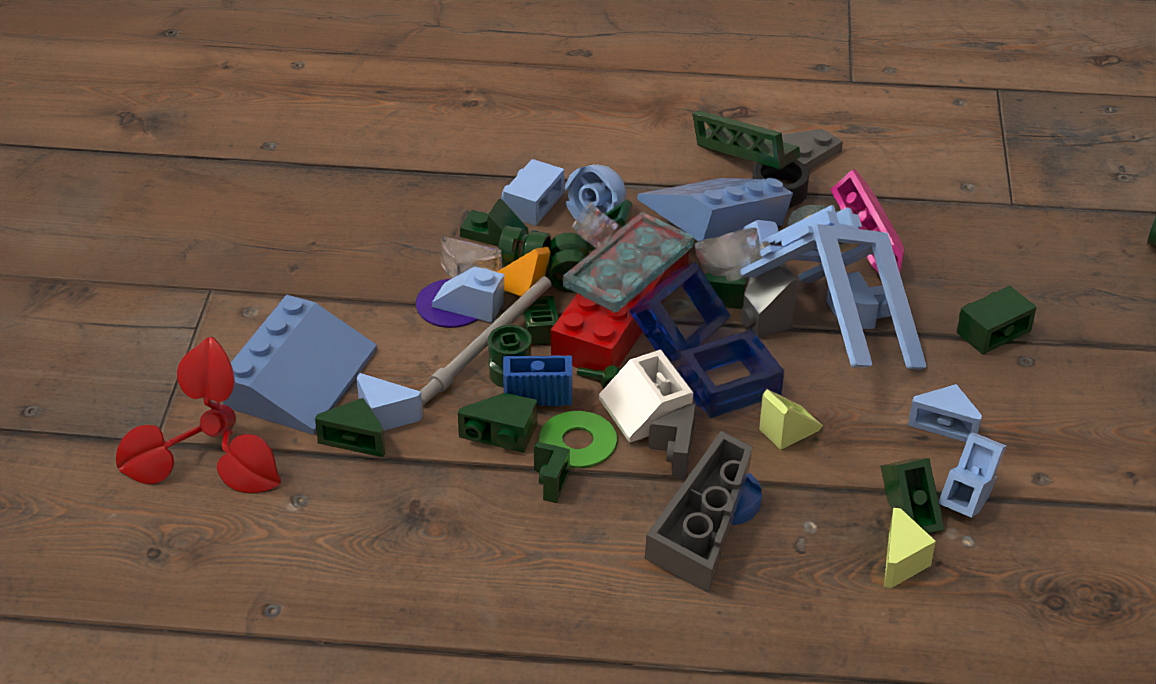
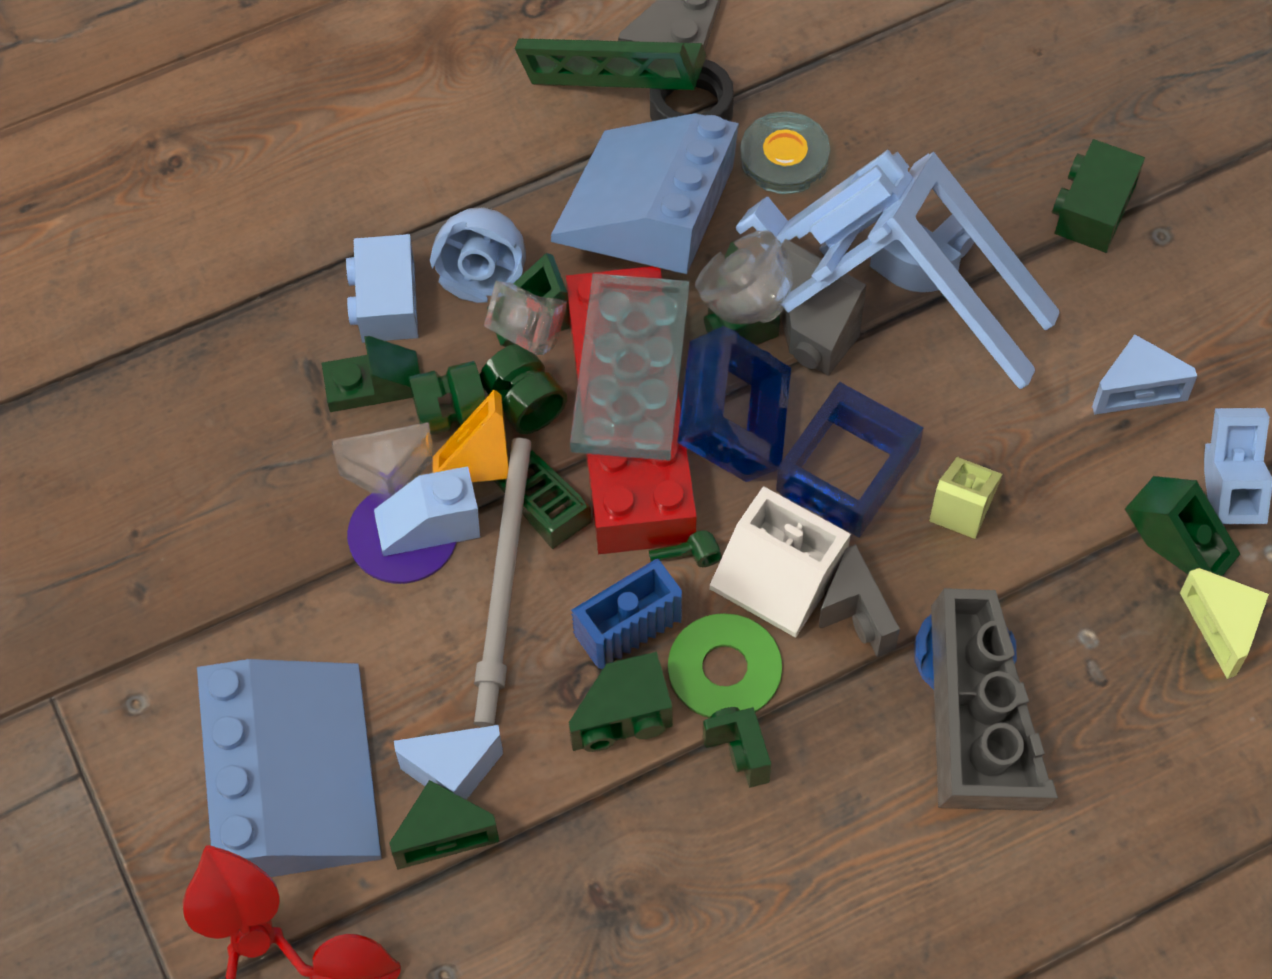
camera: 30 degrees left, 20 degrees up
(506, 341) = (556, 586): dark green wheel -> none
(856, 194) = (840, 106): dark pink brick -> none

